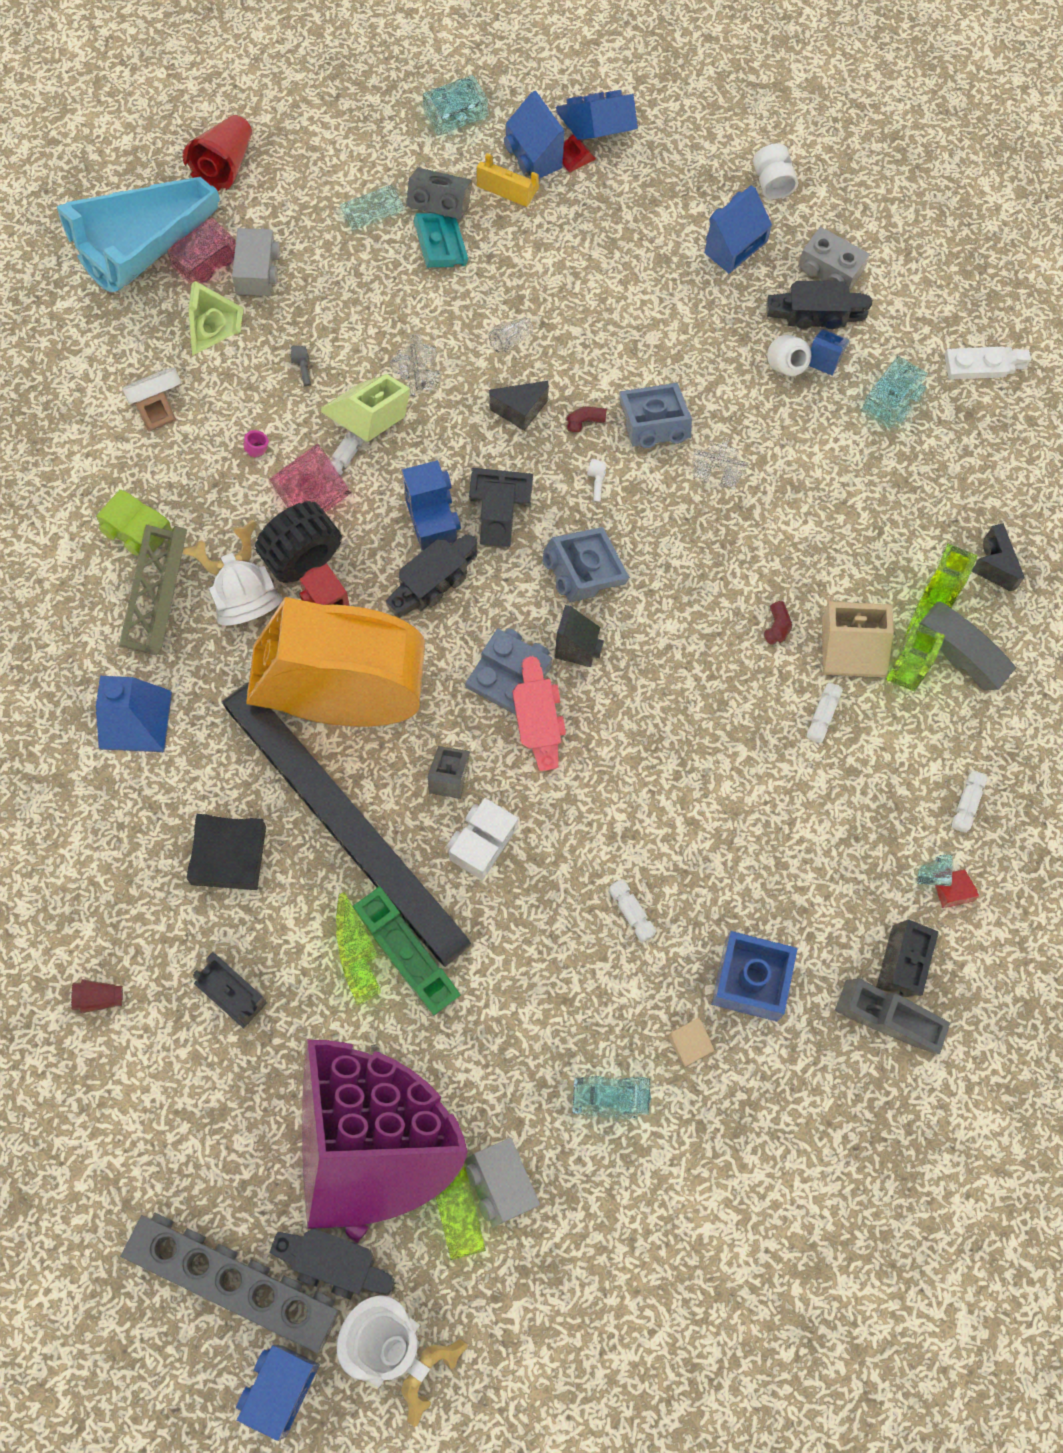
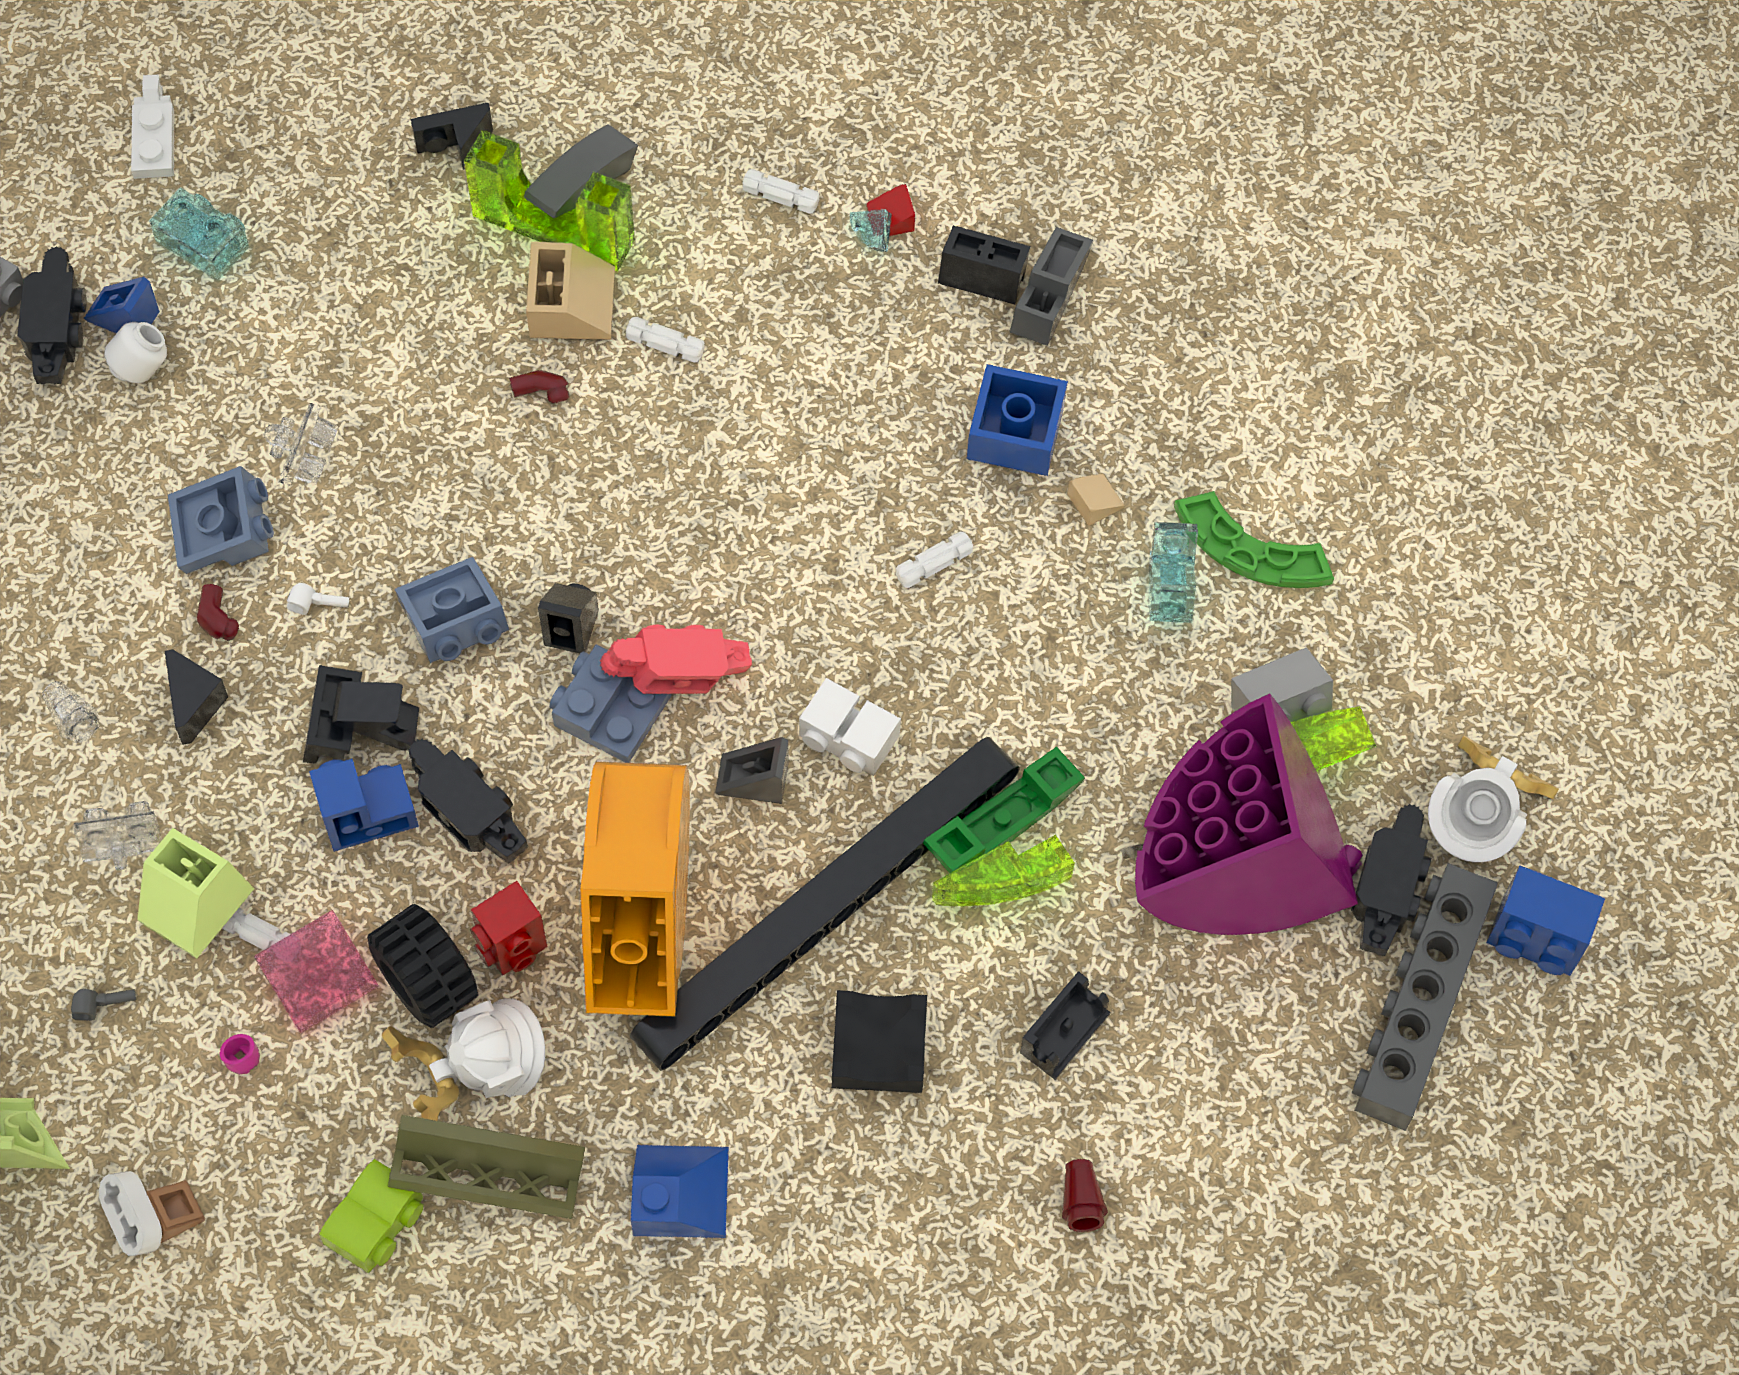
camera: 90 degrees left, 5 degrees down
(640, 1169) = (1260, 561): none -> bright green tile

